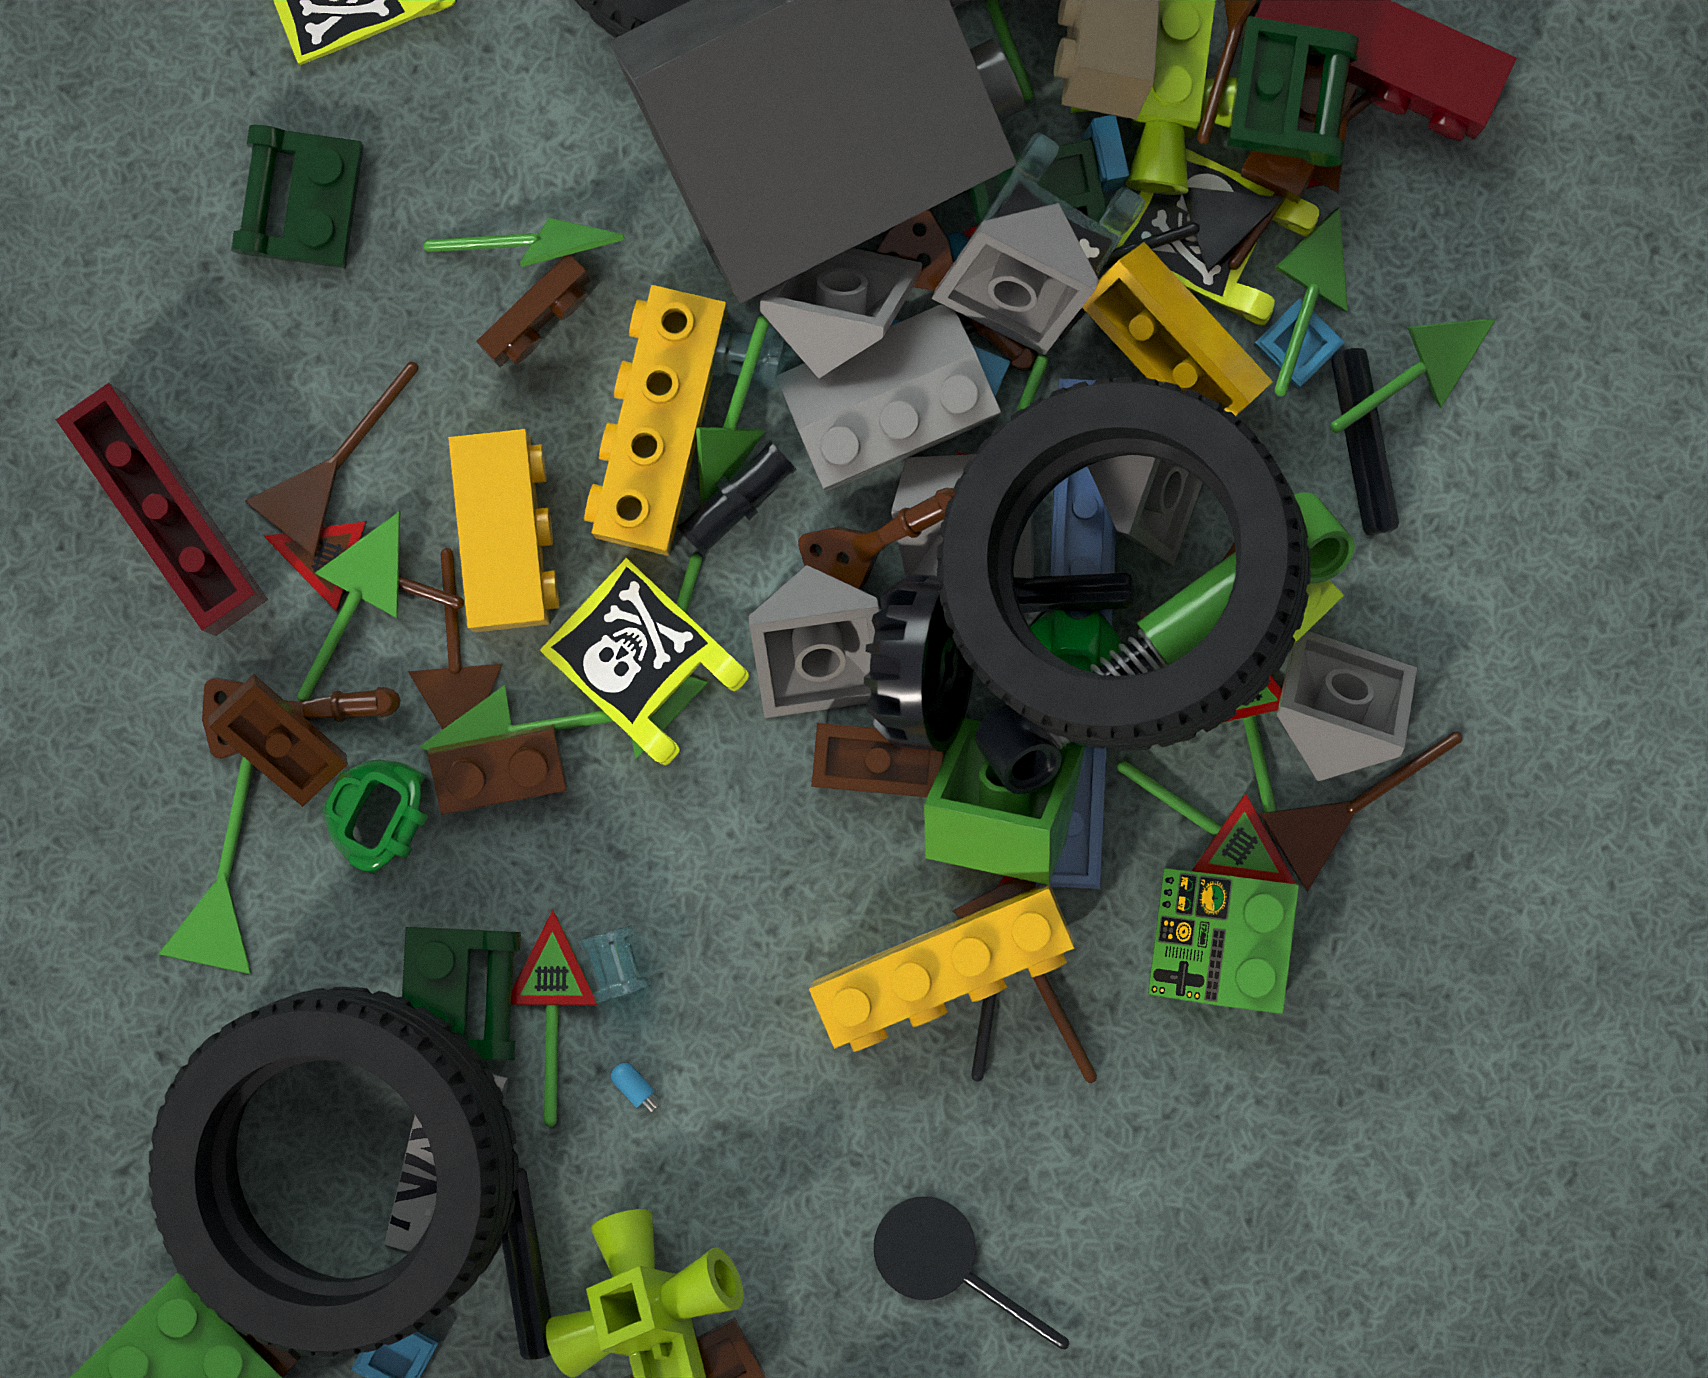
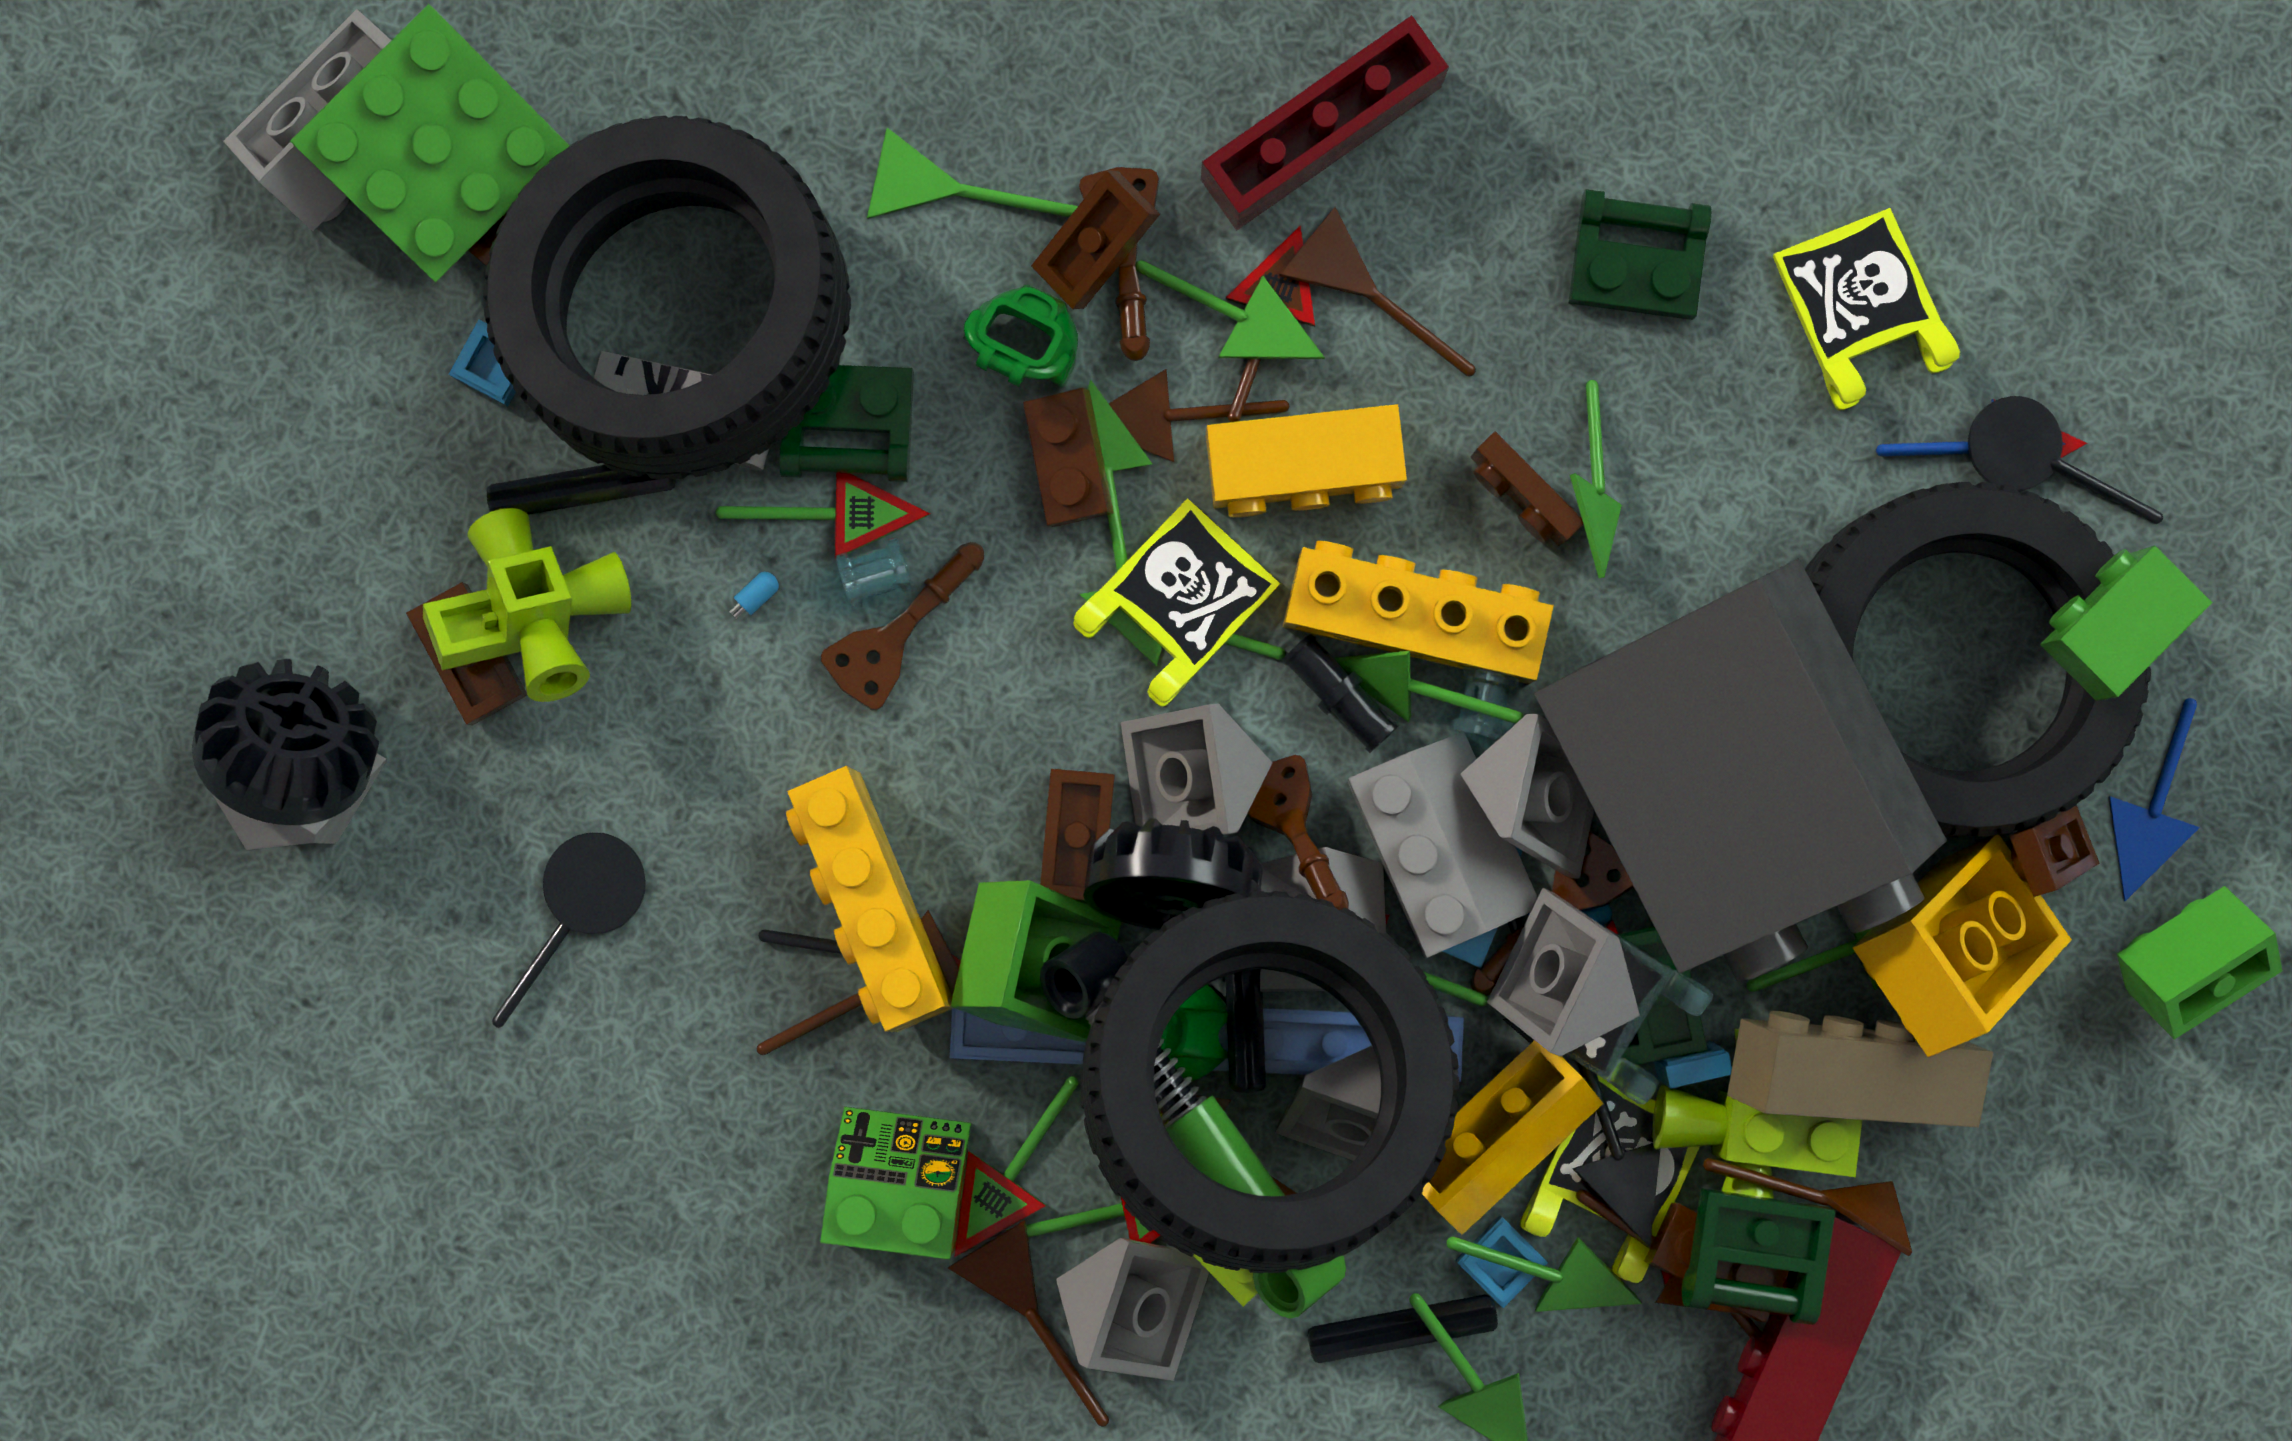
camera: 90 degrees right, 0 degrees up
(679, 948) = (890, 639): none -> reddish brown piece

